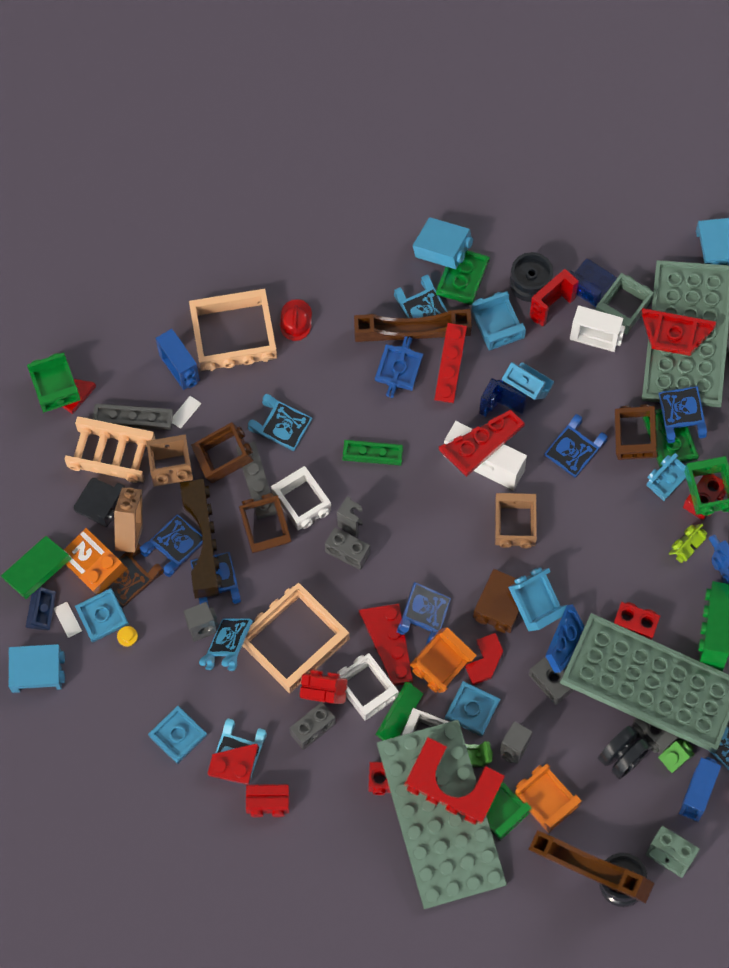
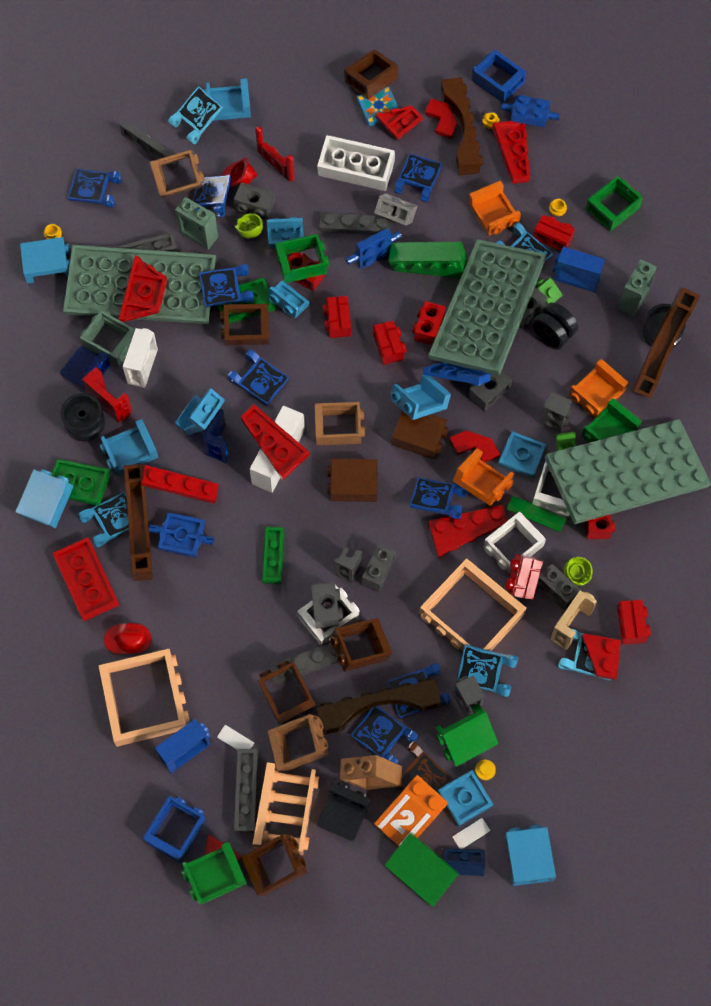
camera: 95 degrees left, 0 degrees up
(42, 426) = (256, 870): none -> reddish brown window
(88, 343) = (164, 847): none -> blue window
(157, 617) = (467, 737): none -> green panel
(177, 734) = (578, 712): dark azure tile -> none
(261, 719) = (562, 634): none -> tan panel
(283, 424) = (246, 640): flag -> none
(295, 481) = (326, 616): none -> dark grey brick
(328, 748) = (578, 570): none -> lime hair
(358, 282) = (86, 579): none -> red plate
(423, 781) = (622, 437): red arch -> none
(449, 531) = (353, 480): none -> reddish brown brick
(612, 577) = (388, 342): none -> red brick
(646, 527) = (338, 317): none -> red brick
(682, 547) = (346, 284): lime hinge -> none

